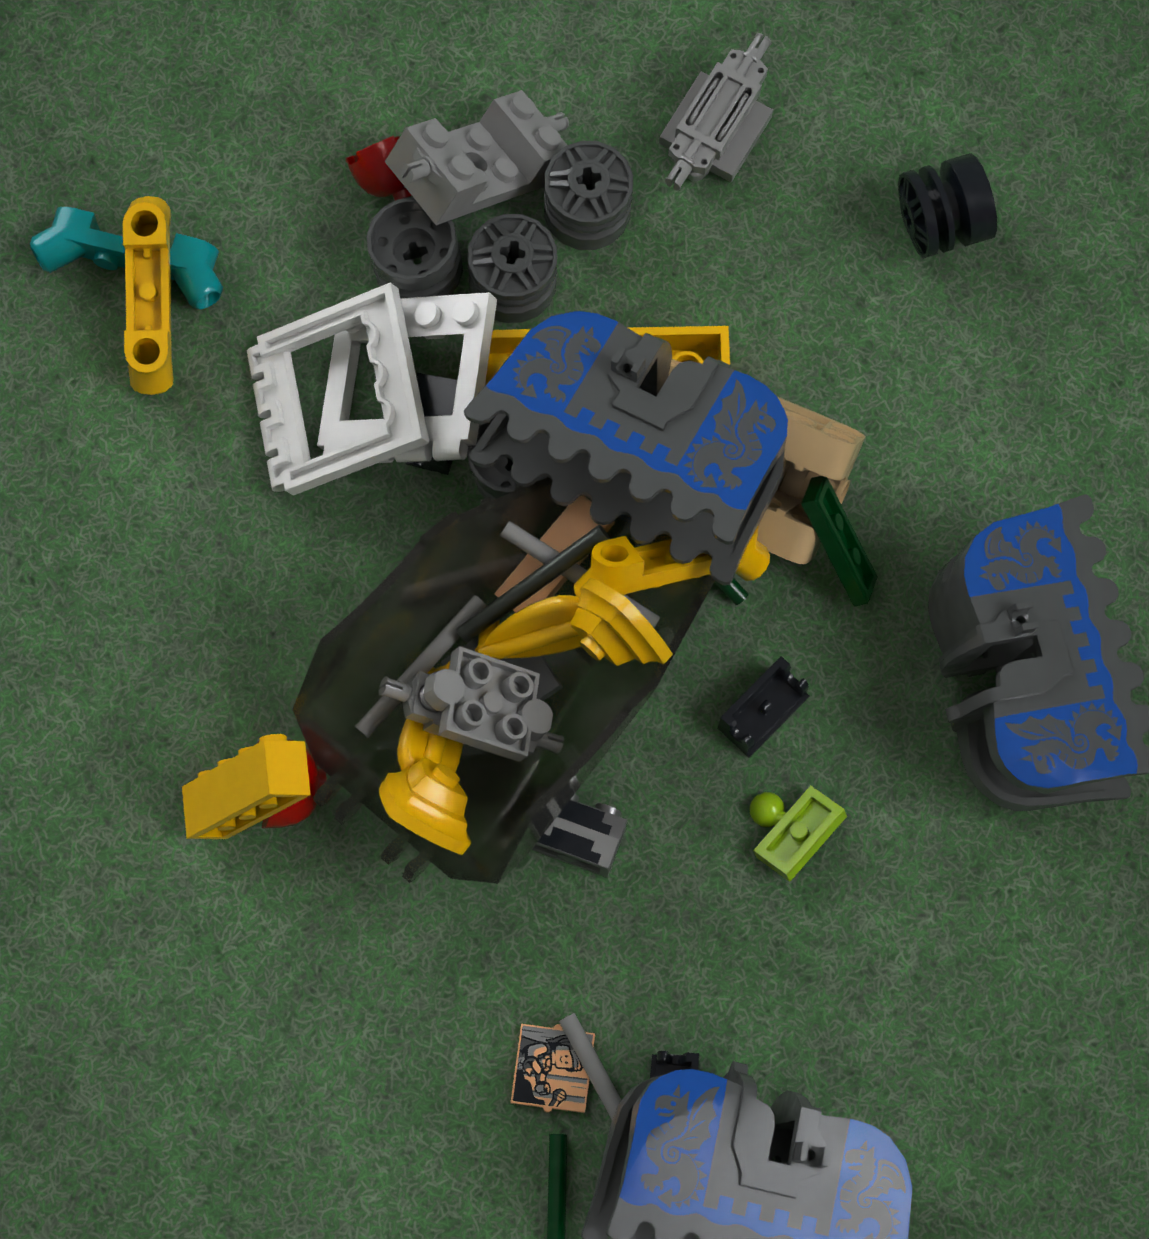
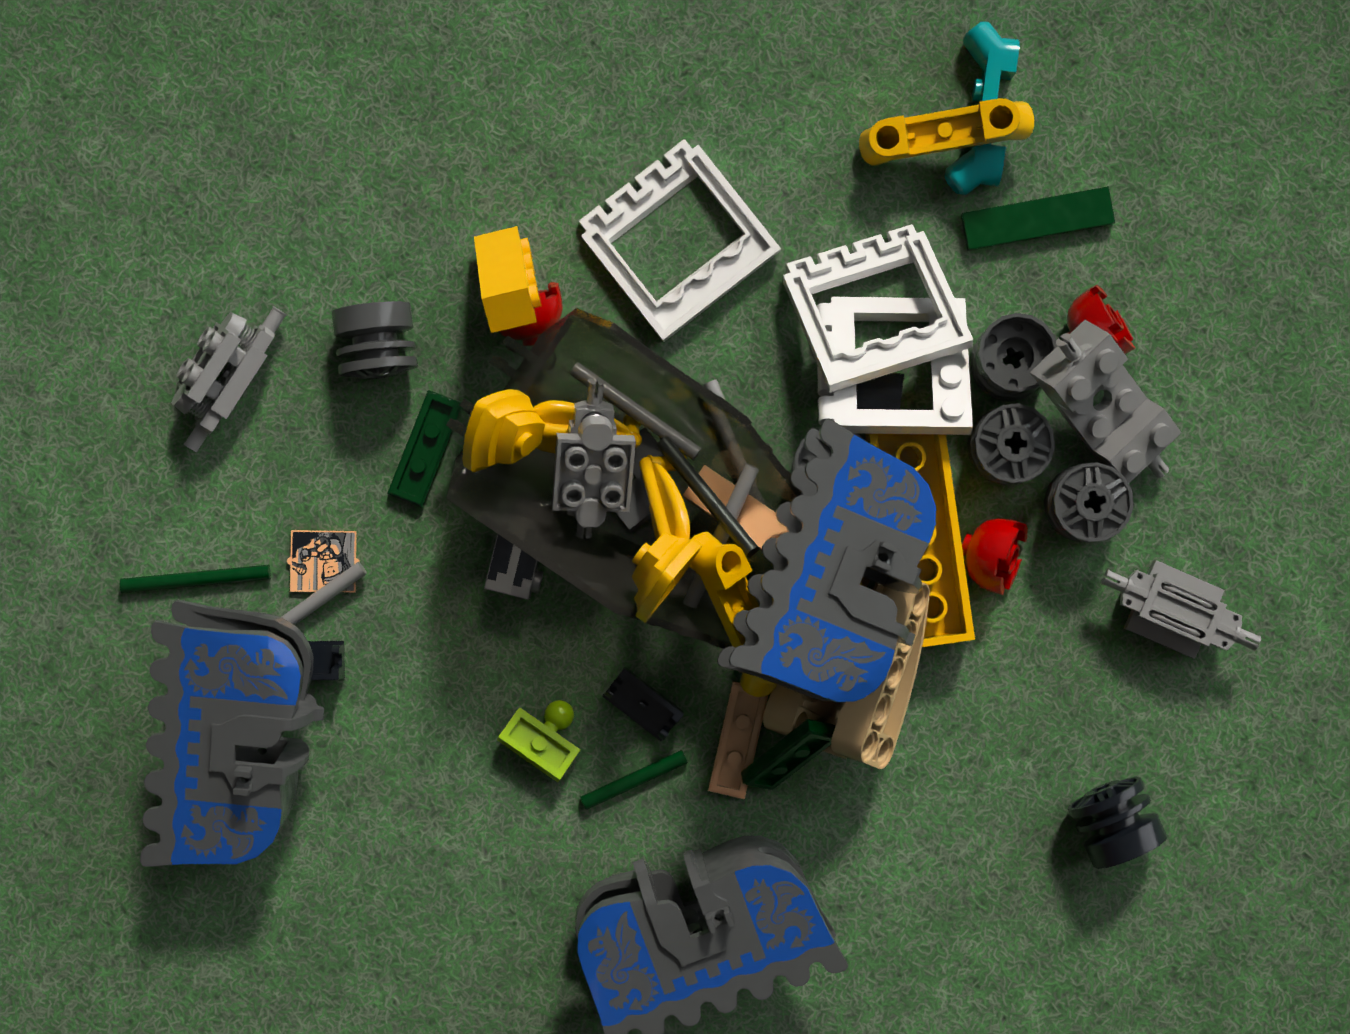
camera: 85 degrees right, 15 degrees up
(261, 218) = (1038, 218): none -> dark green tile
(277, 576) = (711, 279): none -> white hinge
(293, 963) = (374, 339): none -> dark grey wheel
(305, 1158) = (199, 375): none -> light grey piece
(432, 929) = (424, 449): none -> dark green tile
(632, 299) = (994, 553): none -> red cylinder
(816, 608) = (737, 742): none -> light nougat tile
(851, 731) = (633, 779): none -> dark green piece

